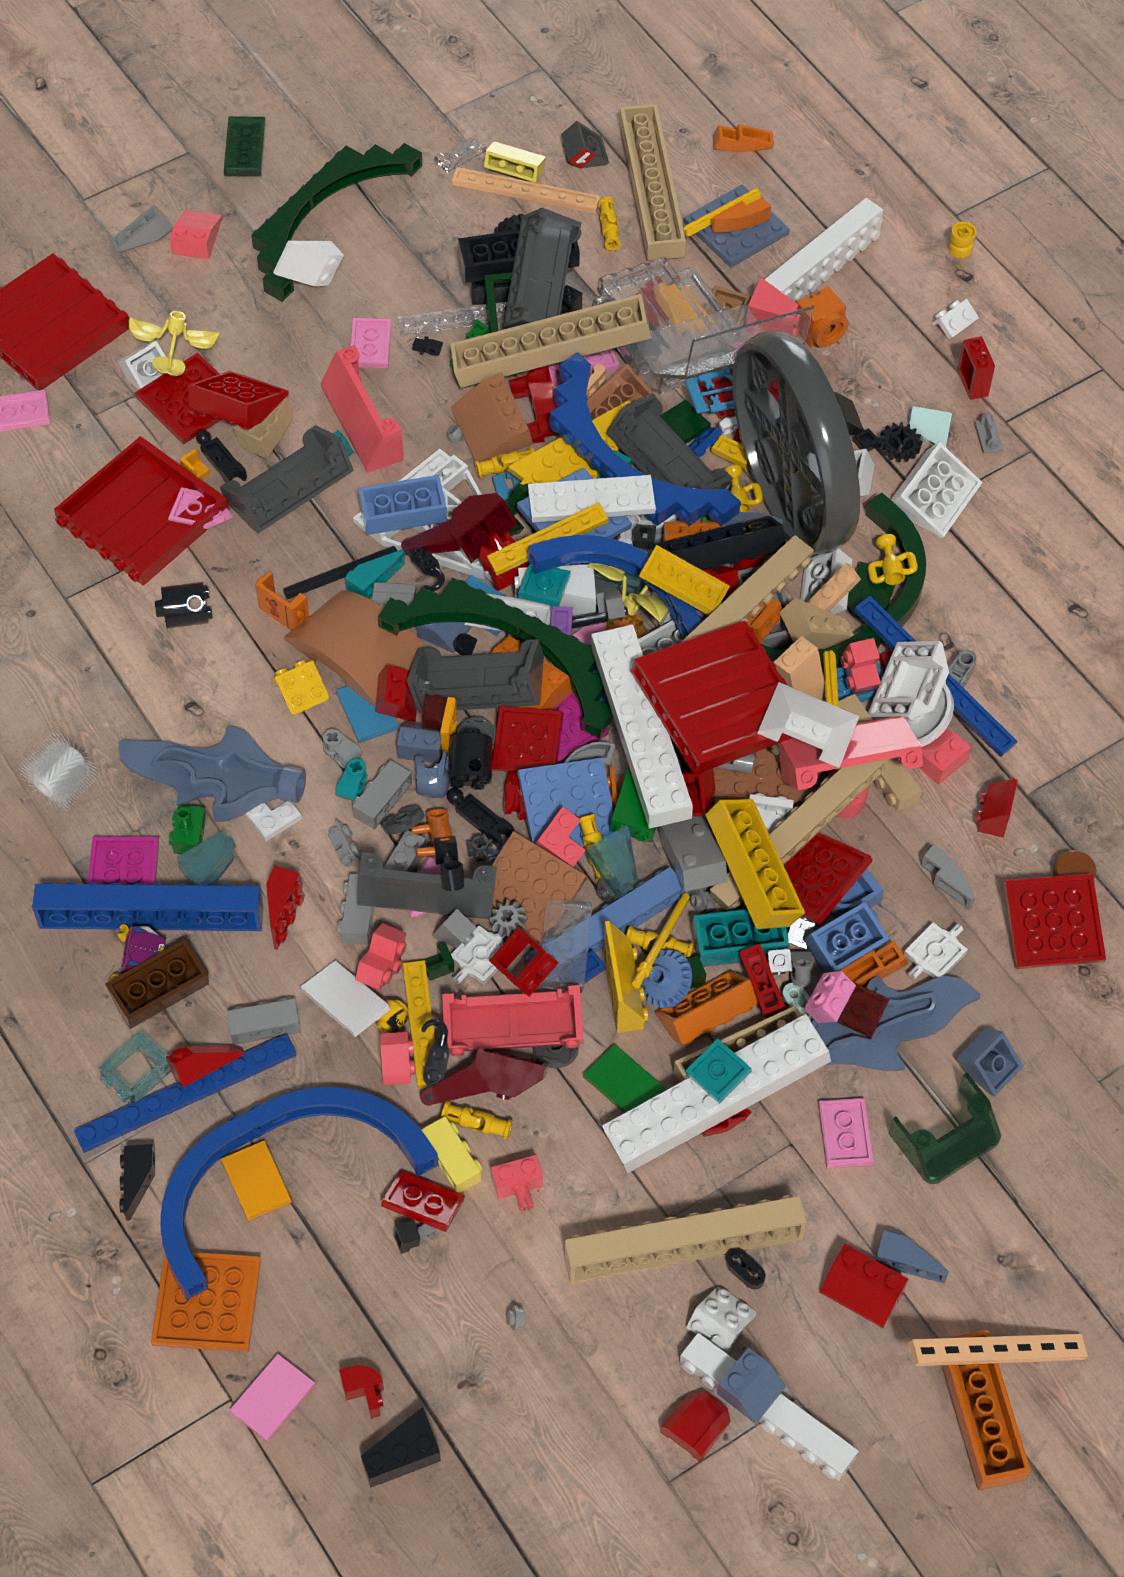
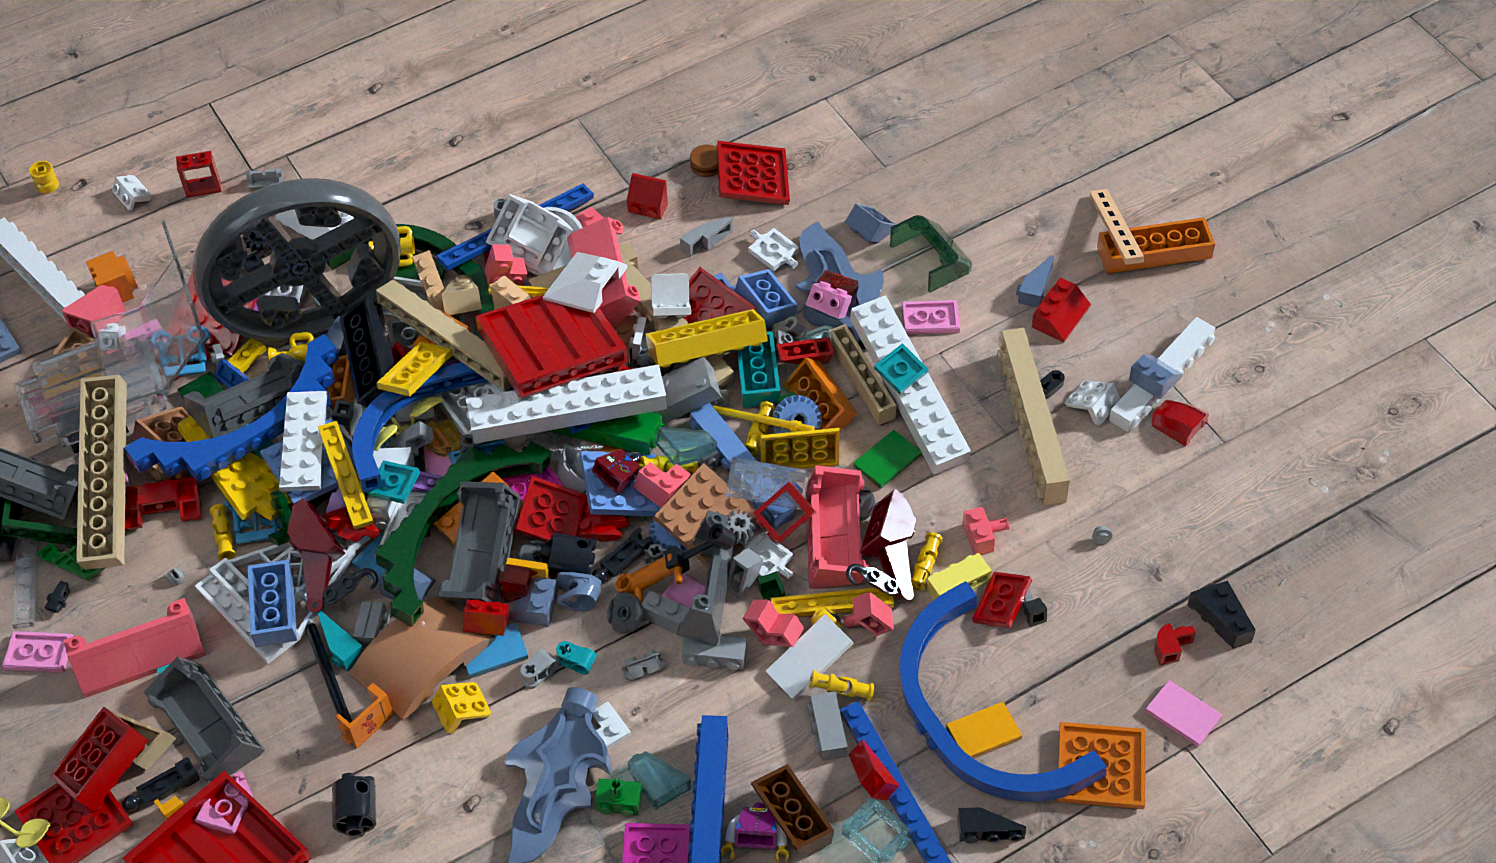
camera: 85 degrees left, 5 degrees down
(284, 897) = (704, 701): red slope -> none
(308, 1027) = (833, 684): none -> yellow piece
(381, 794) = (592, 633): light grey brick -> none
(464, 644) = (431, 568): black tile -> none
(491, 420) = (171, 539): nougat slope -> none
(572, 791) = (616, 469): none -> dark red torso
(722, 317) = (110, 336): none -> white bracket
(809, 823) = (670, 295): none -> white bracket
(874, 964) = (789, 283): orange slope -> none

